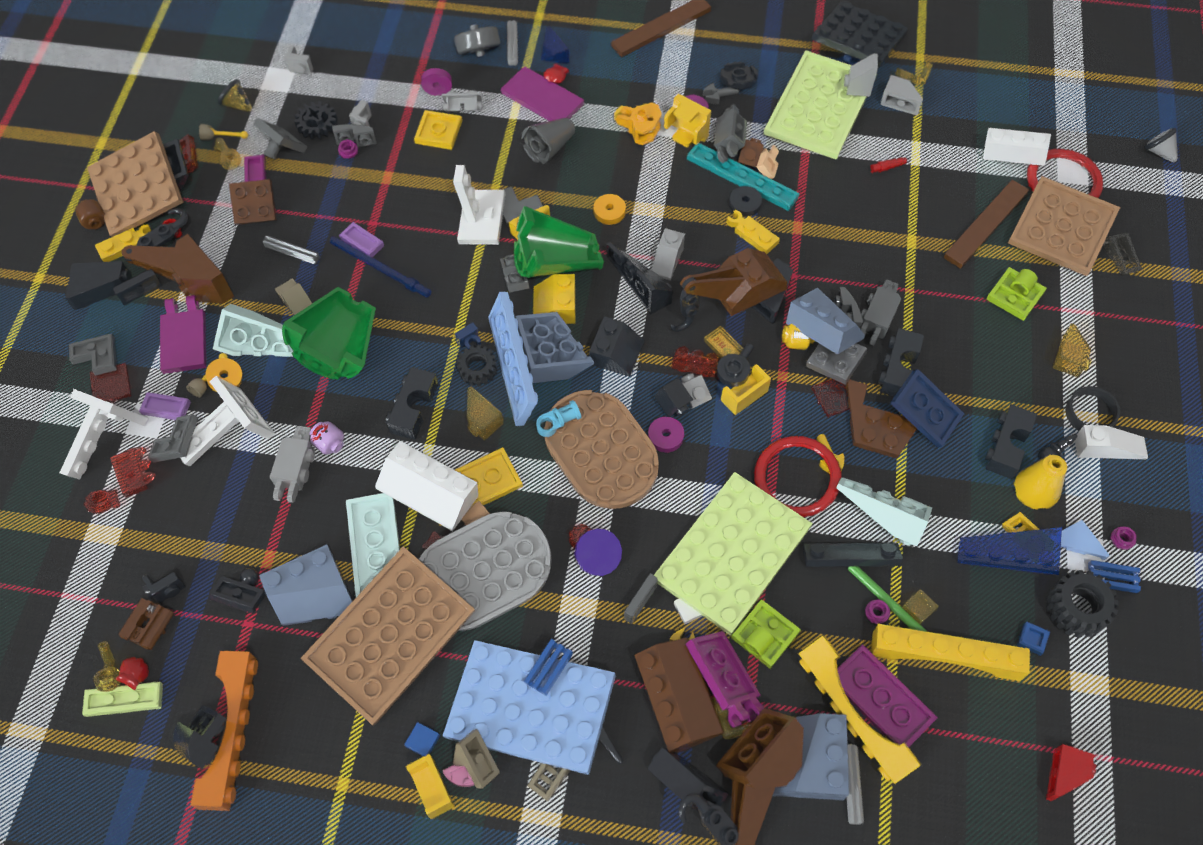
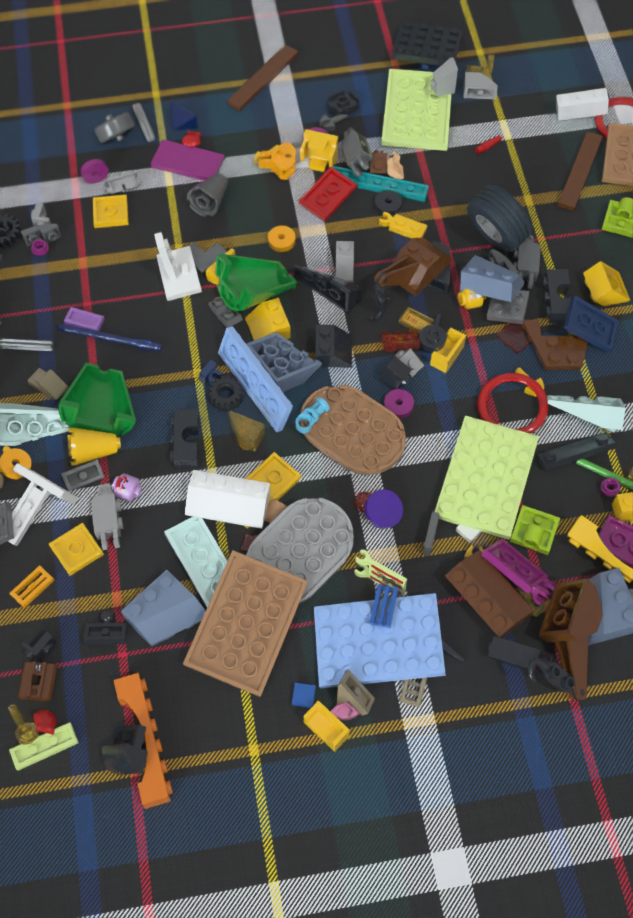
camera: 20 degrees left, 0 degrees up
(186, 519) = (33, 592): none -> light orange tile
(248, 489) = (76, 549): none -> yellow tile
(288, 409) = (82, 475): none -> dark grey slope
(307, 379) = (90, 445): none -> yellow cone
(560, 627) = (380, 573): none -> yellowish green flag
(680, 173) = (327, 194): none -> red tile
(862, 252) = (499, 218): none -> black wheel
(965, 366) = (605, 285): none -> yellow slope

